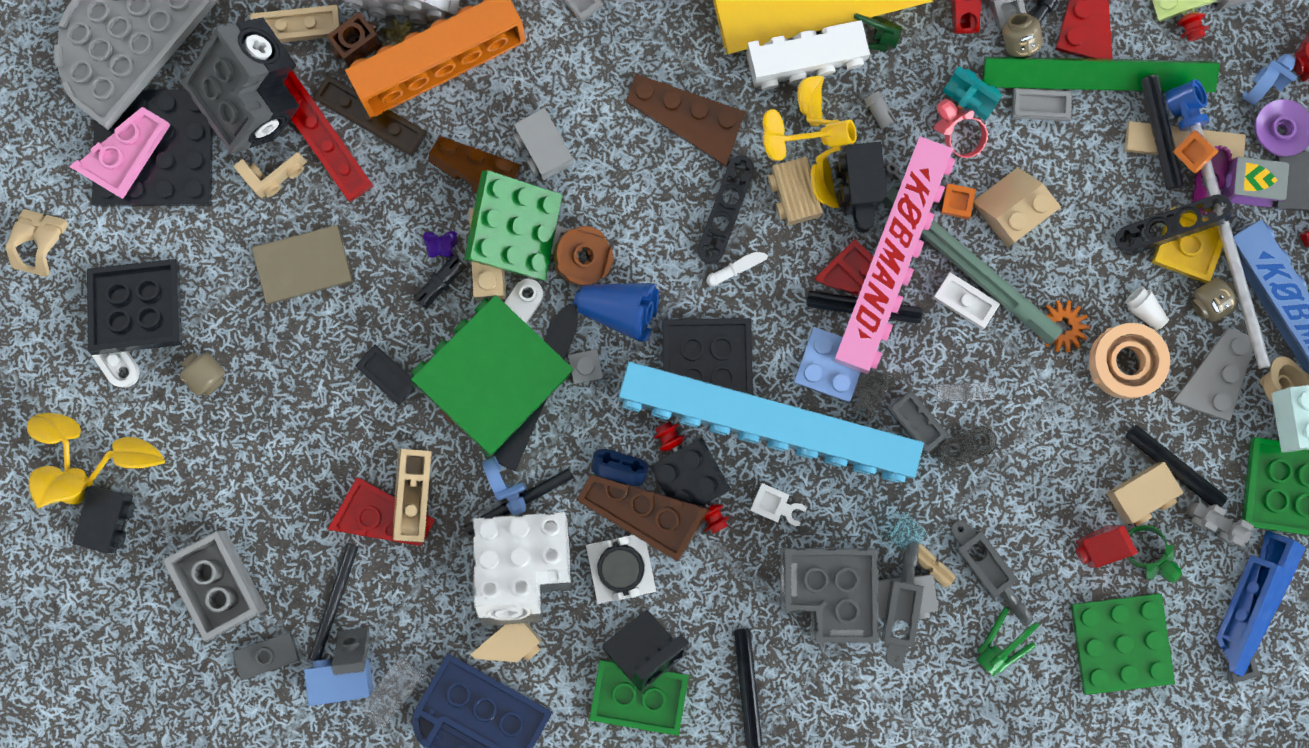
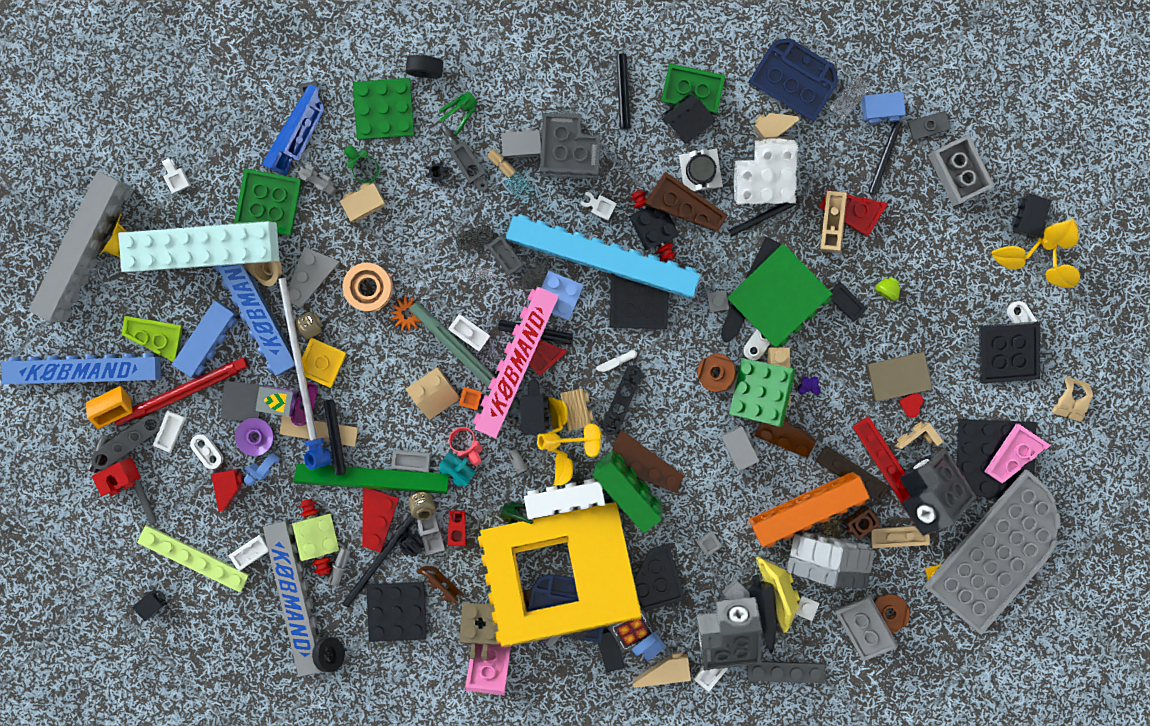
camera: 175 degrees left, 5 degrees up
(202, 374) = (966, 307): dark tan head -> none
(282, 223) = (911, 404): none -> red tile
(322, 397) = (888, 288): none -> lime cone
(351, 651) = (875, 124): dark grey plate -> none
(440, 281) = (810, 360): black pin -> none
(501, 490) = (774, 222): medium blue piece -> none
(619, 467) = (699, 234): dark blue beam -> none
(620, 306) = (694, 337): blue cone -> none
(711, 67) = (628, 491): none -> green brick
(905, 605) = (523, 136): dark grey piece -> none
(1026, 551) = (432, 175): none -> black gear
(1065, 711) = (424, 66): none -> black tyre
(1105, 546) = (392, 169): red slope -> none
(1147, 308) = (352, 322): white cone -> none
(1172, 221) = (332, 373): black beam -> none
(1177, 467) = (342, 220): black axle -> none
(1195, 151) = (315, 420): orange plate -> none

